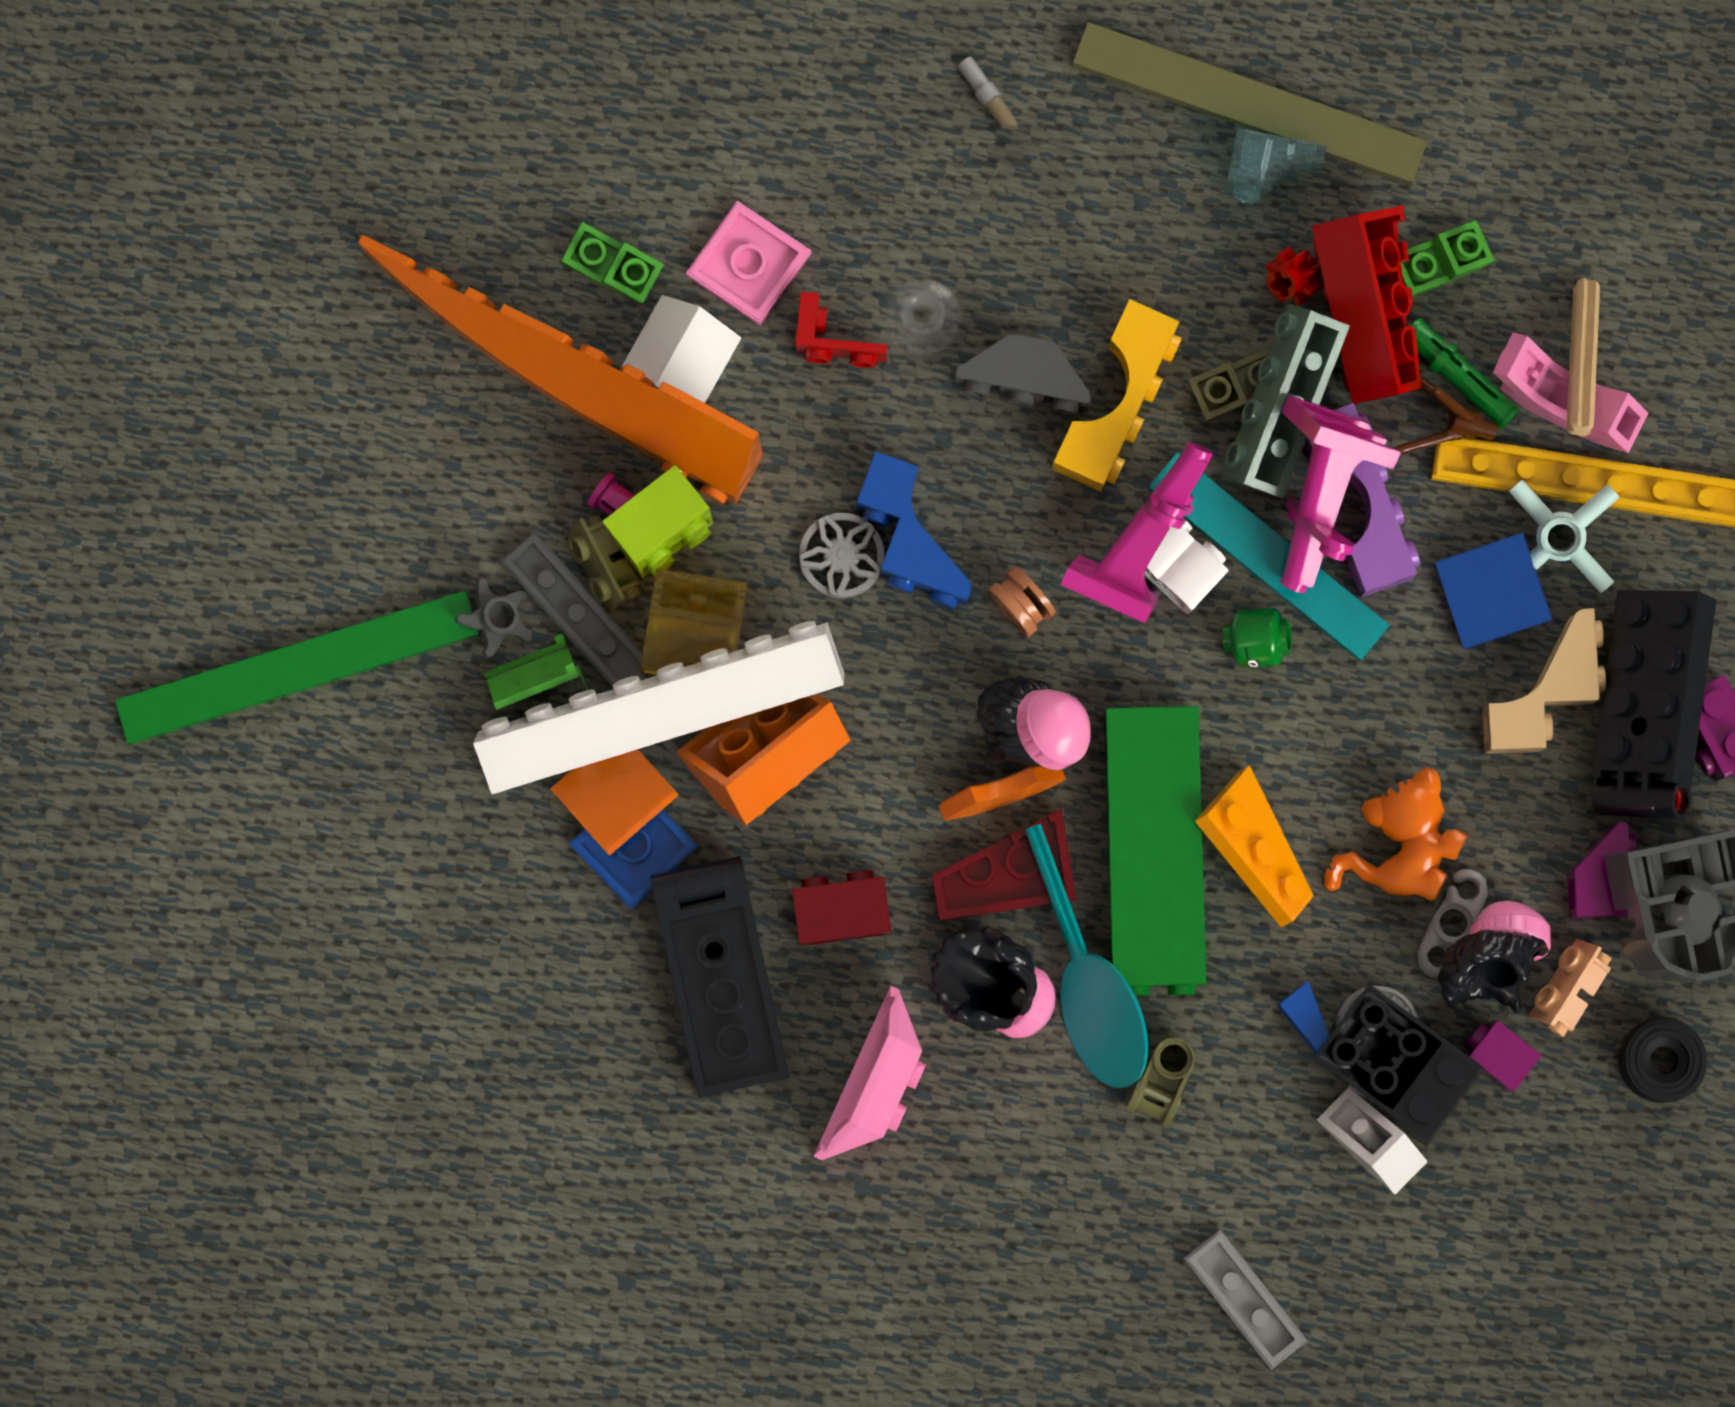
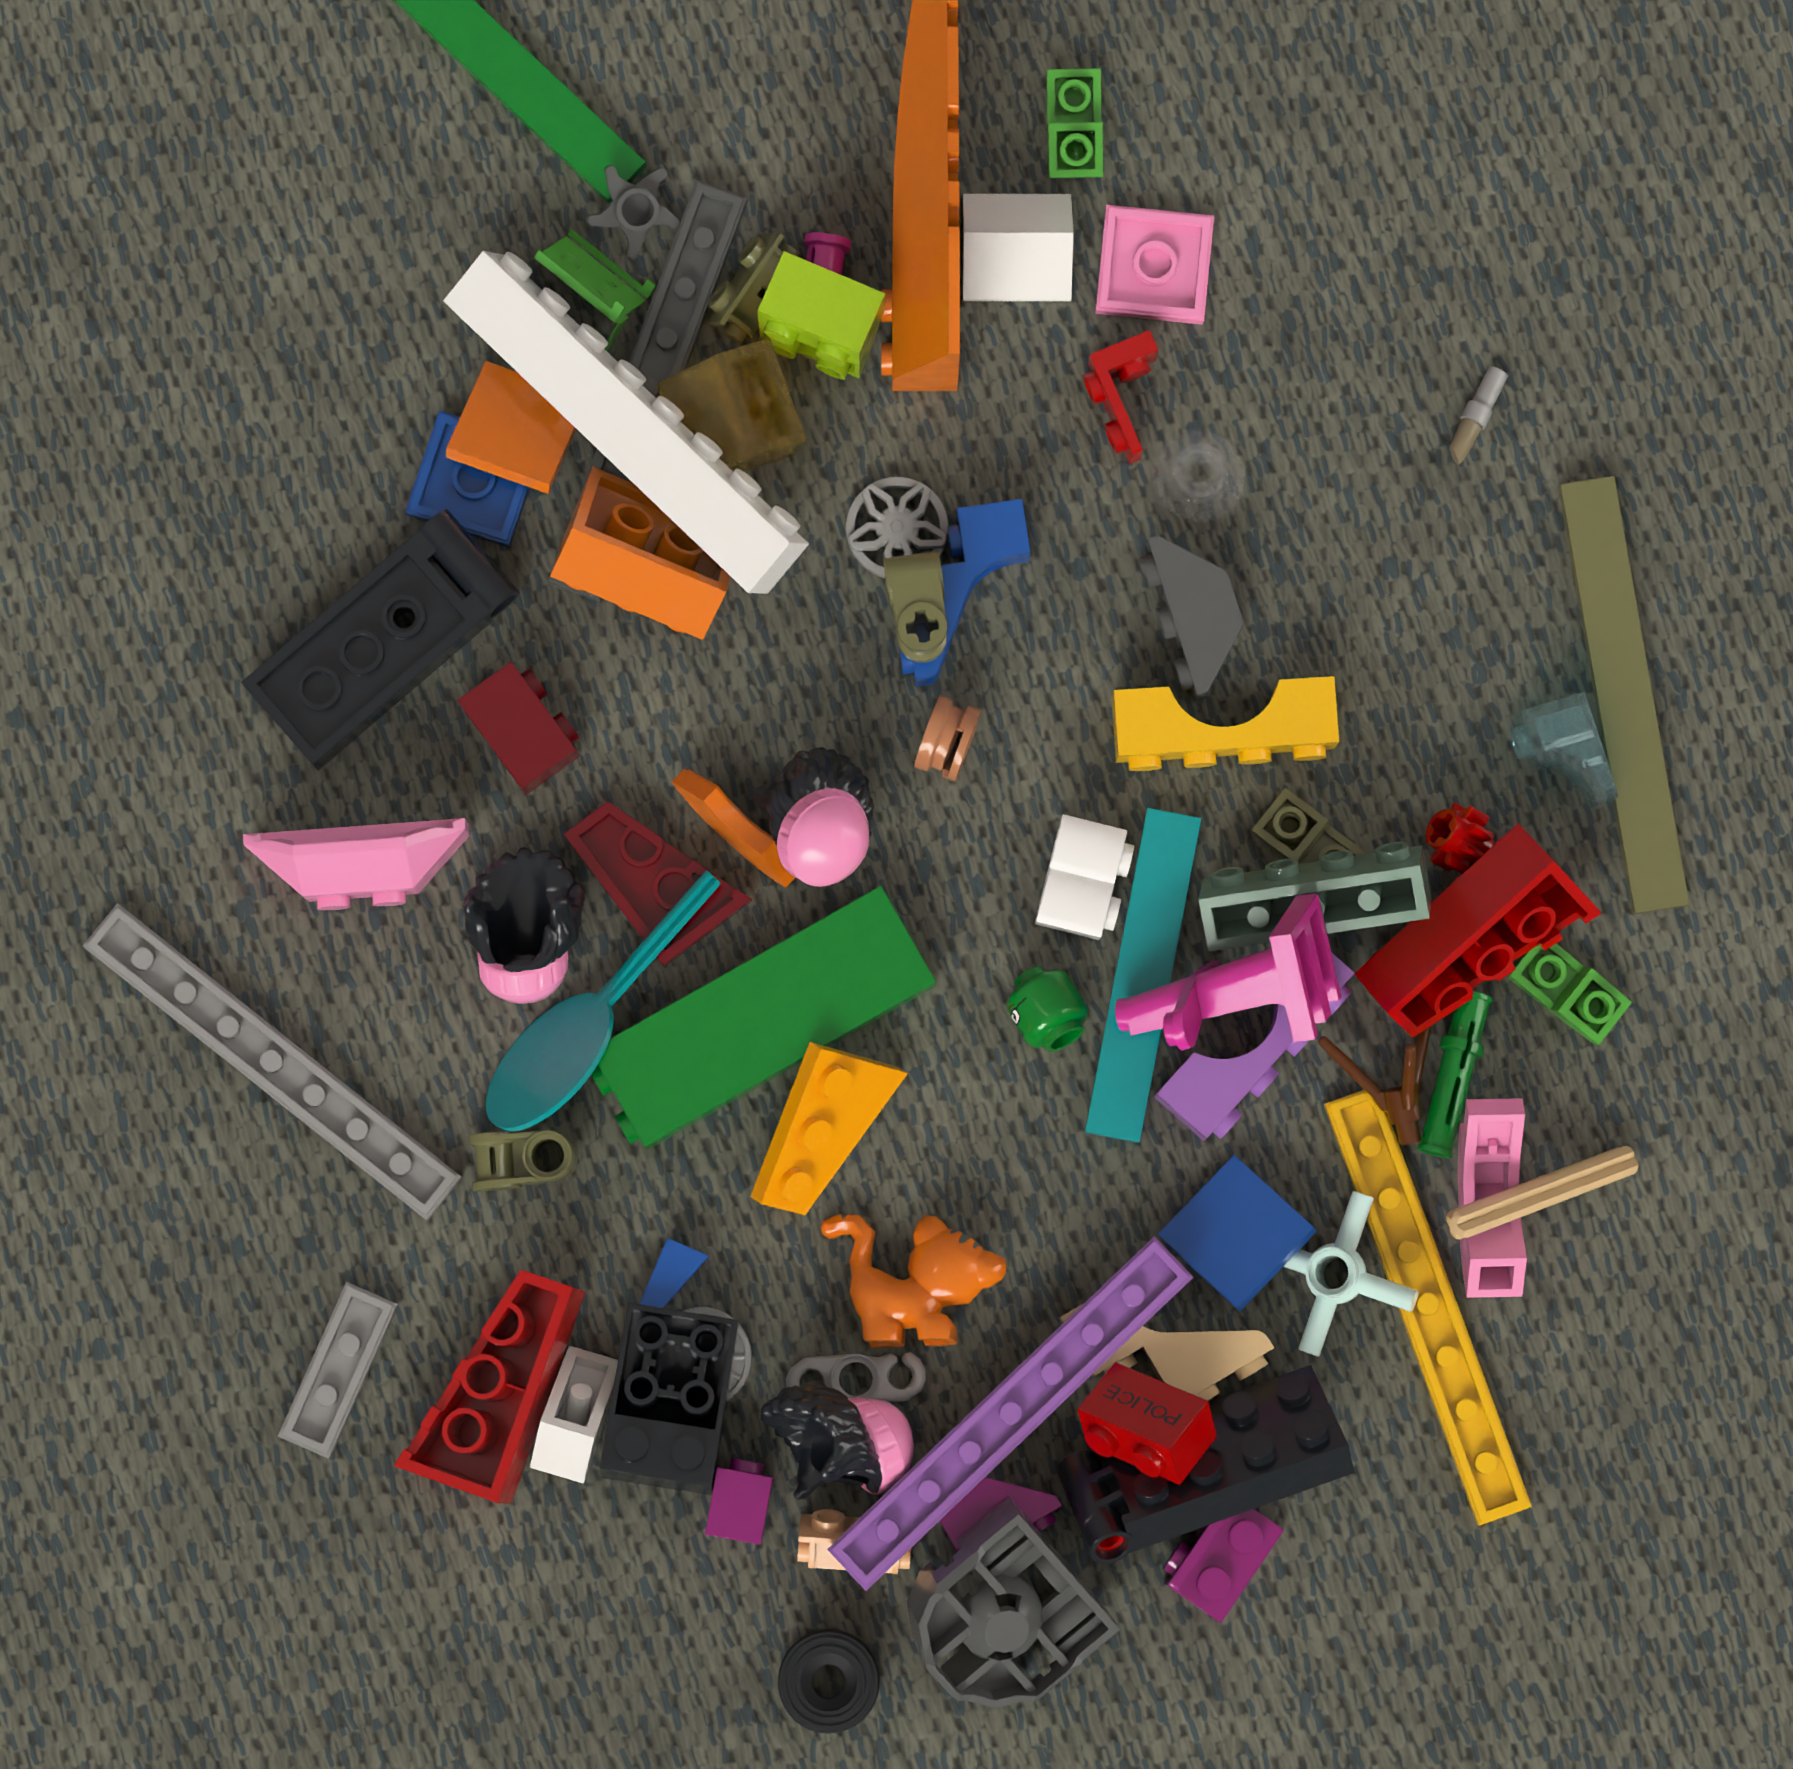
camera: 60 degrees right, 0 degrees up
(907, 565) = (917, 597): none -> olive piece
(989, 1227) = (272, 1062): none -> light grey tile
(1121, 574) = (1026, 825): dark pink piece -> none
(1334, 1195) = (498, 1393): none -> red wedge
(1543, 823) = (1009, 1413): none -> medium lavender tile
(1605, 727) = (1147, 1423): none -> red brick

